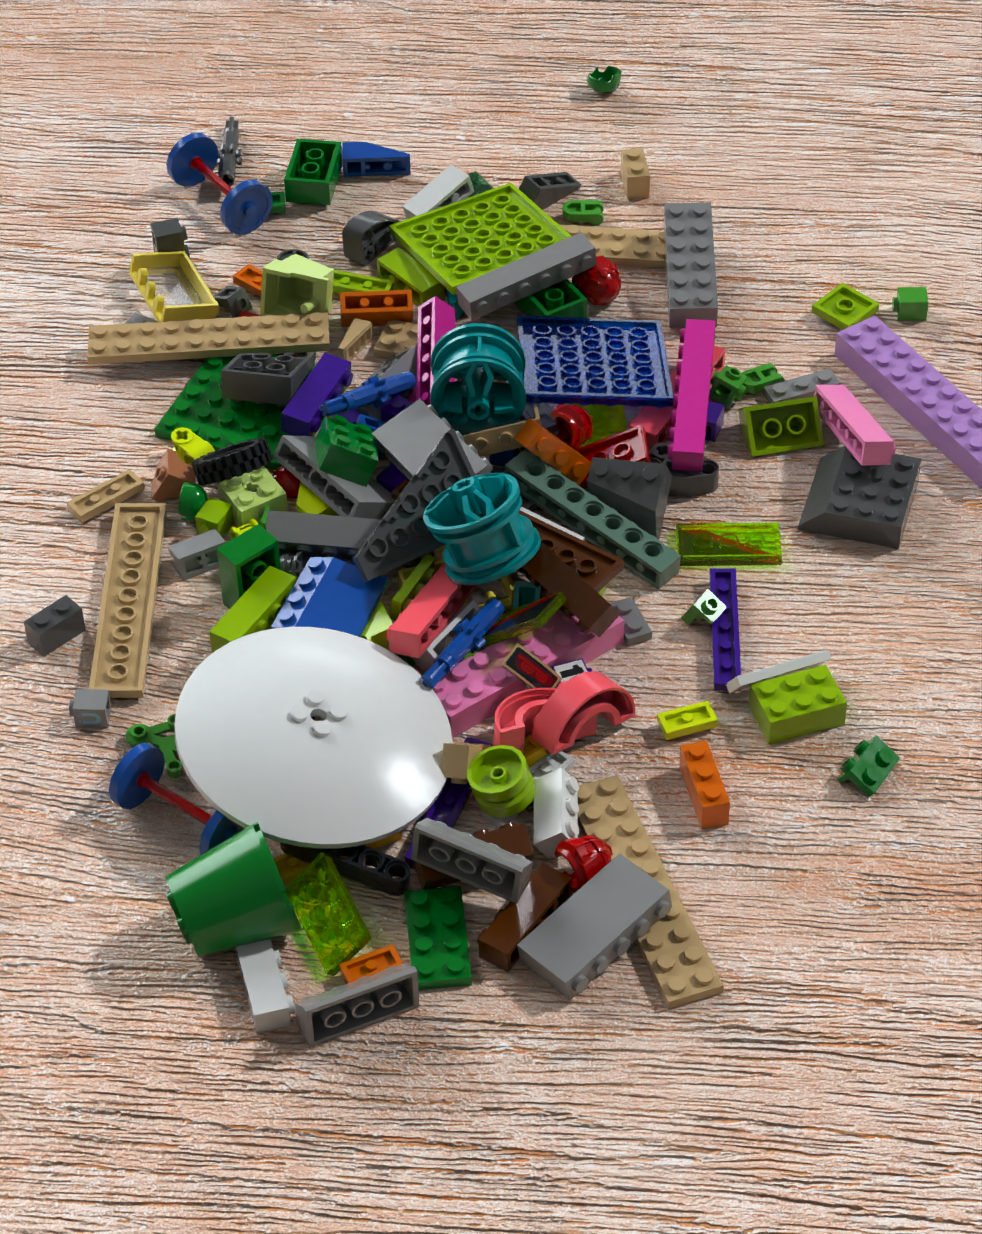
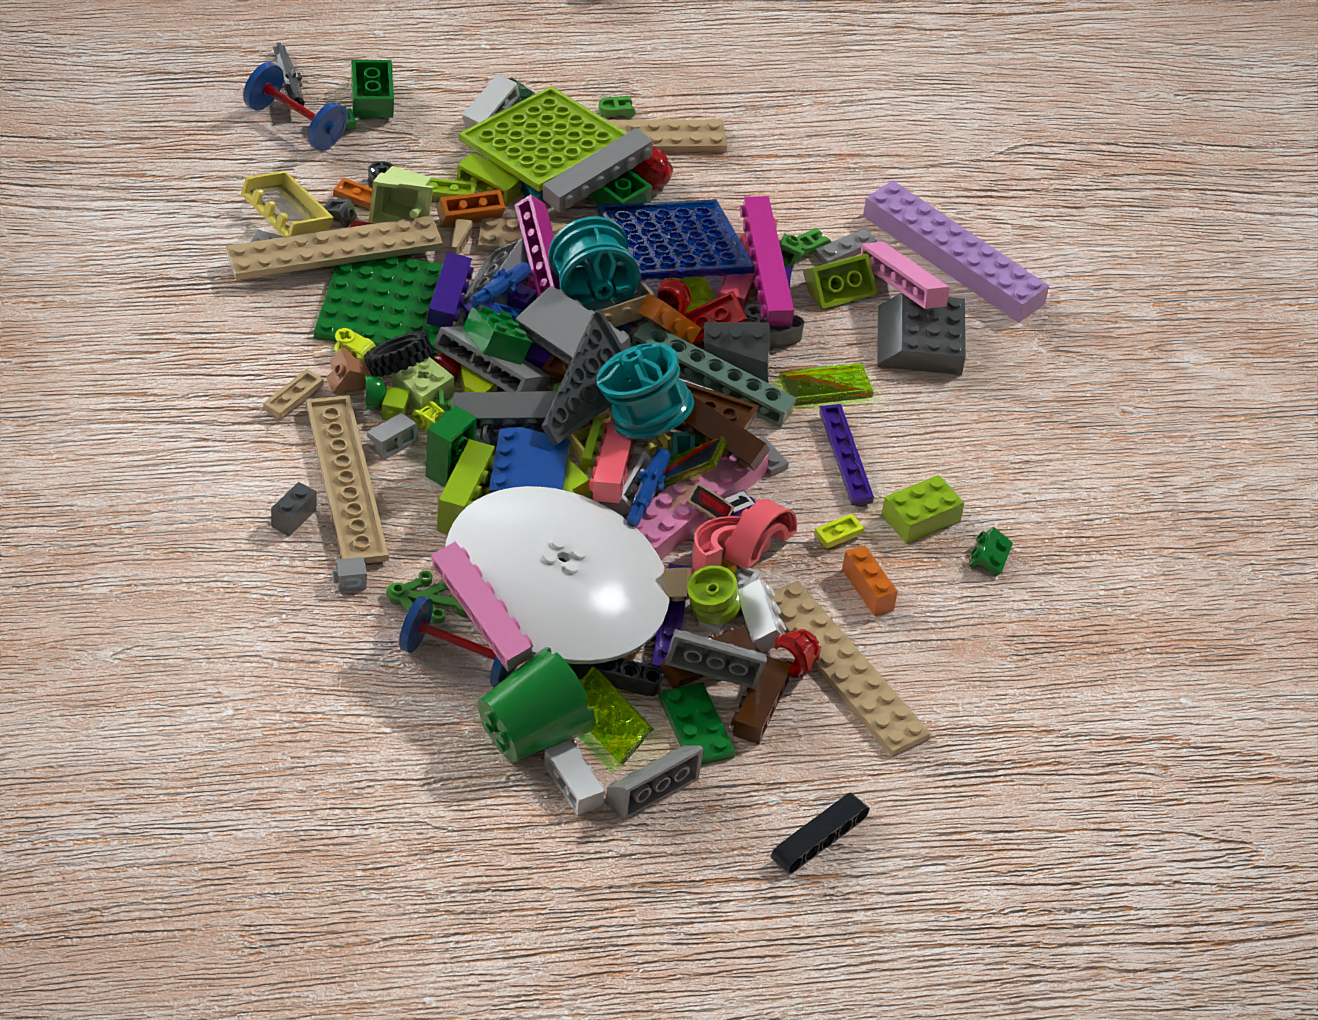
camera: 20 degrees left, 0 degrees up
(169, 236) = (269, 159): dark grey brick -> none
(195, 763) = (482, 606): none -> bright pink brick
(265, 378) = (402, 279): dark grey wedge -> none
(367, 236) = (441, 144): dark grey beam -> none
(369, 963) = (652, 751): orange plate -> none
(373, 160) = (416, 73): blue slope -> none
(543, 1096) = (820, 833): none -> black beam
(548, 188) = (582, 87): dark grey slope -> none
(595, 926) = (821, 699): light grey brick -> none
(635, 173) = (651, 69): tan brick -> none
(690, 263) = (726, 147): light grey brick -> none
(706, 607) = (826, 437): bright green bracket -> none
(799, 664) = (901, 483): white tile -> none
(845, 307) = (861, 174): lime plate -> none
(911, 303) = (915, 167): bright green brick -> none

